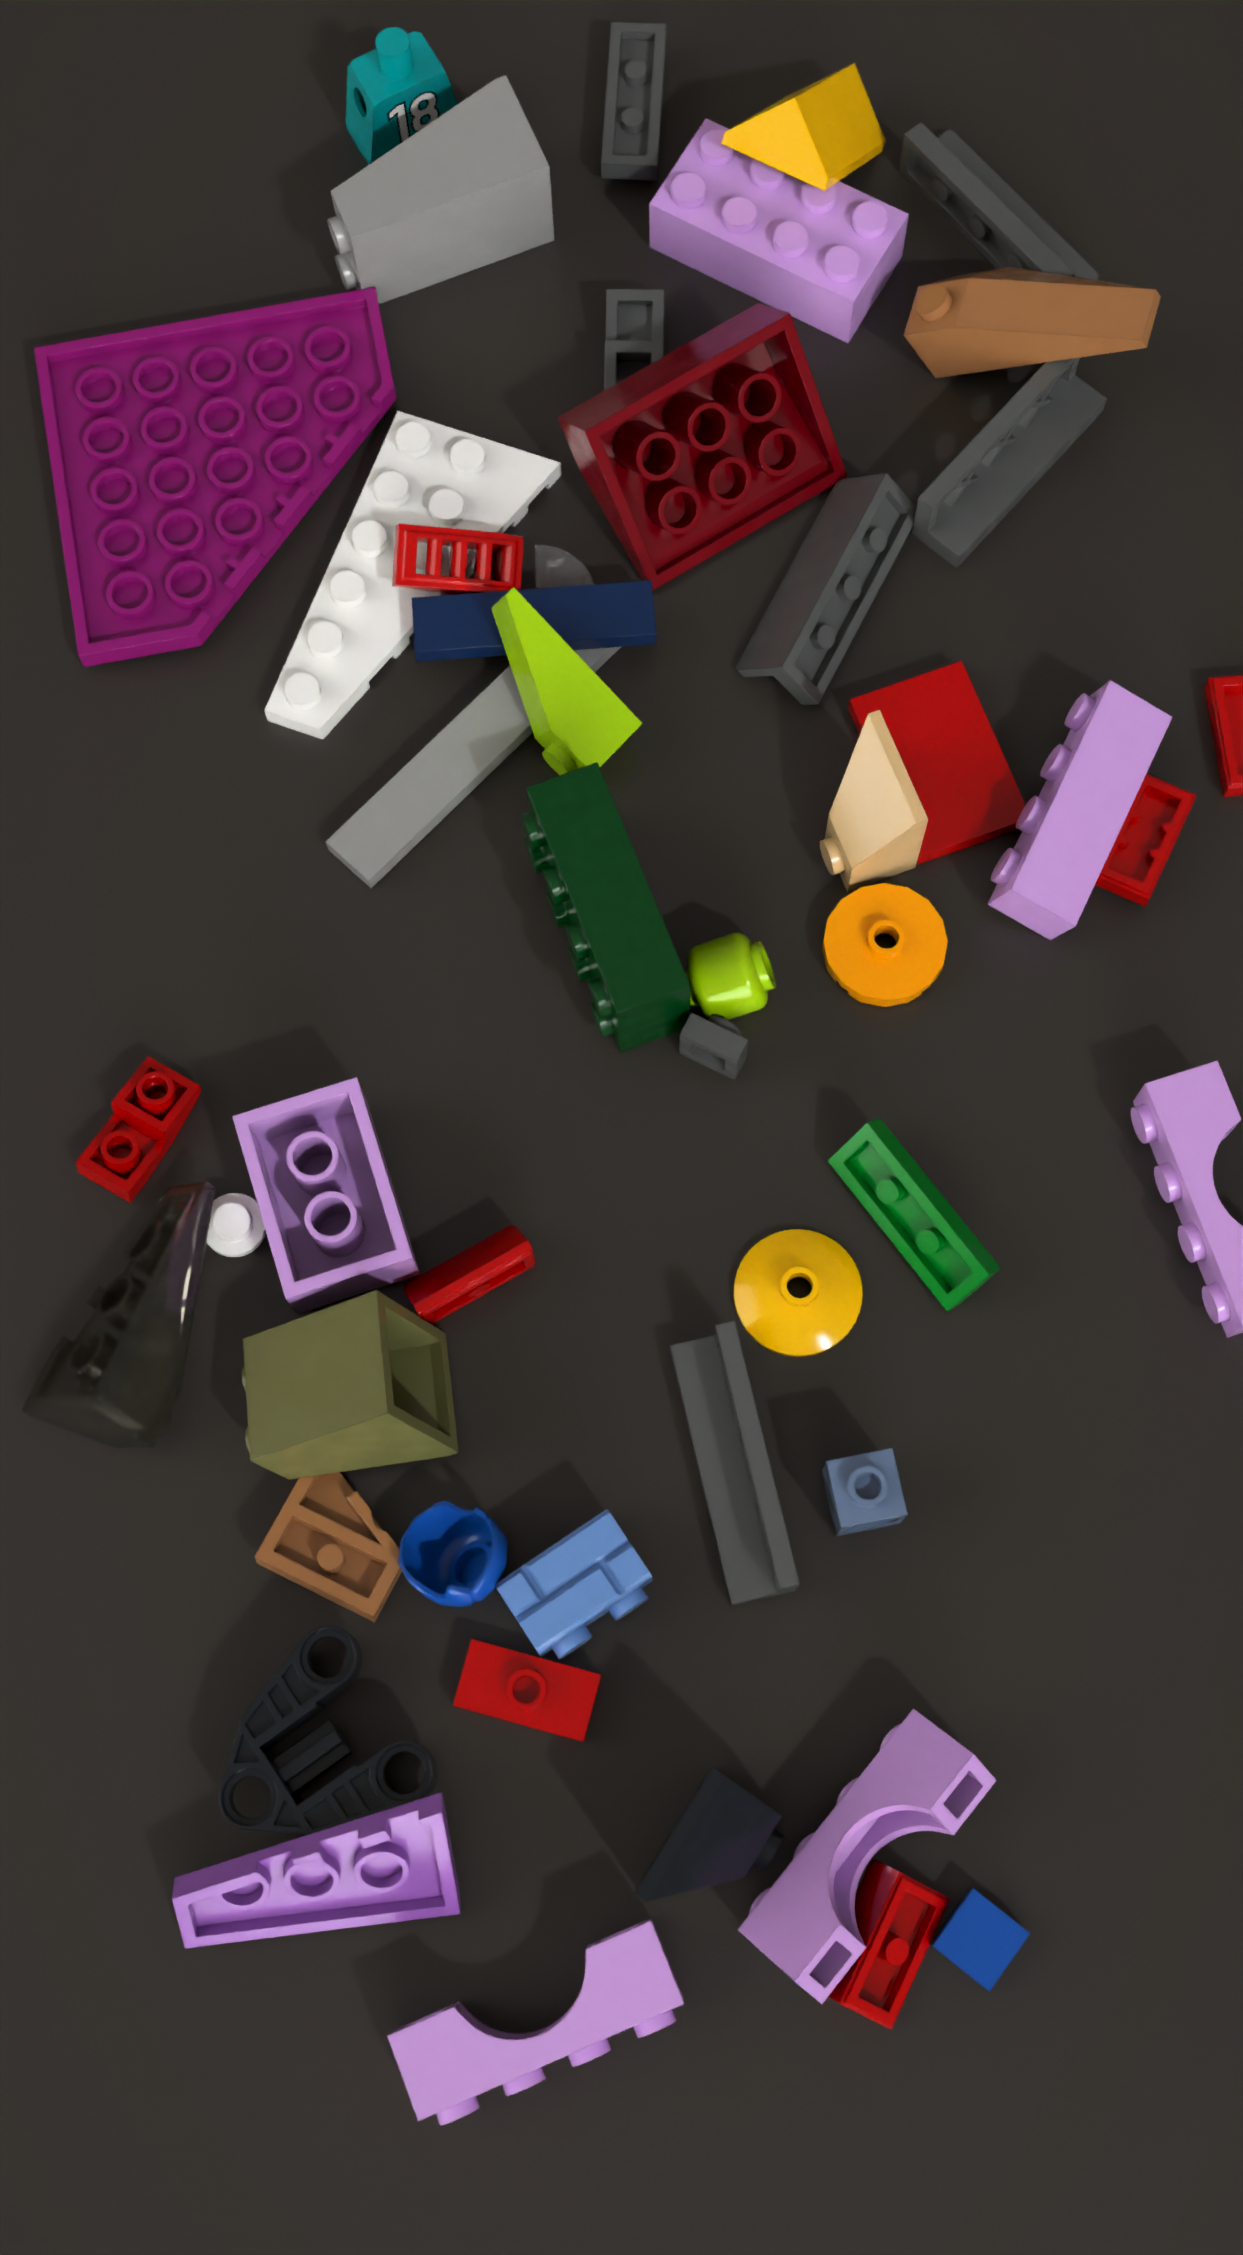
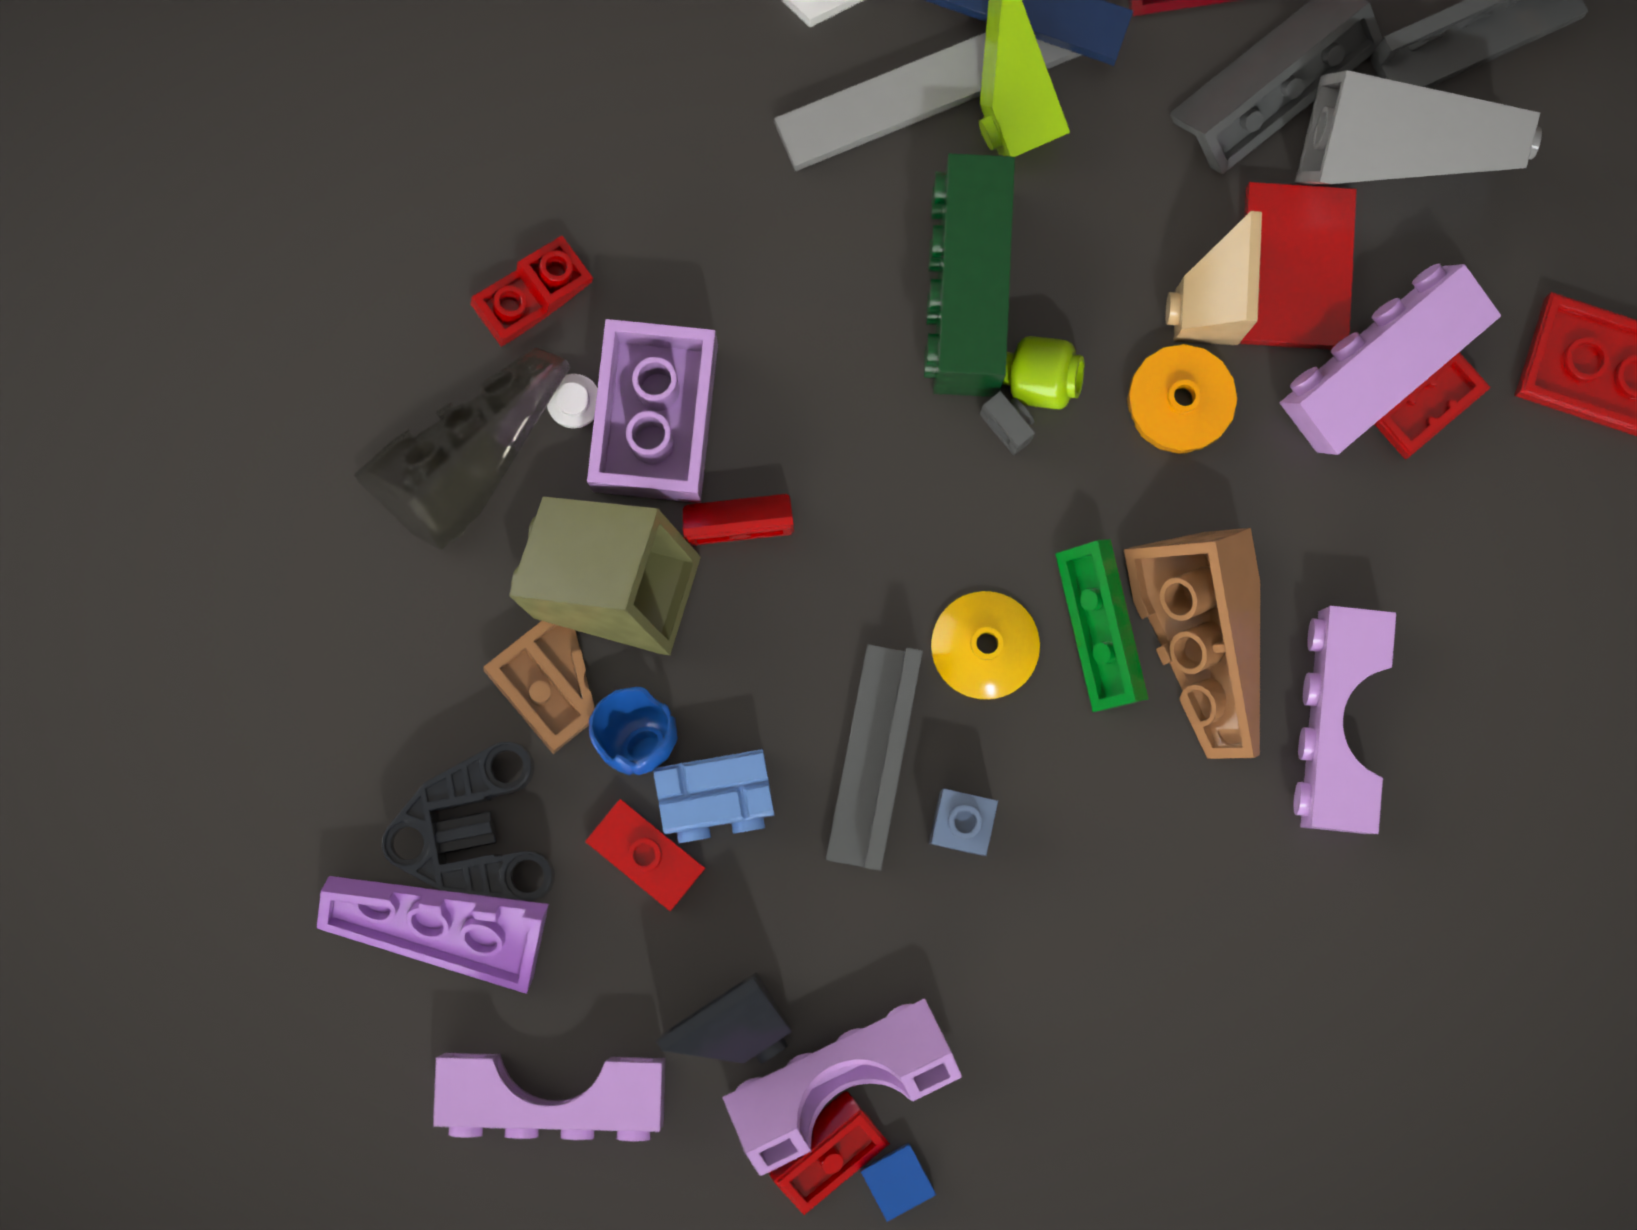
camera: 20 degrees right, 10 degrees up
(981, 576) = (1400, 130): none -> light grey slope
(1021, 1159) = (1207, 617): none -> medium nougat wedge

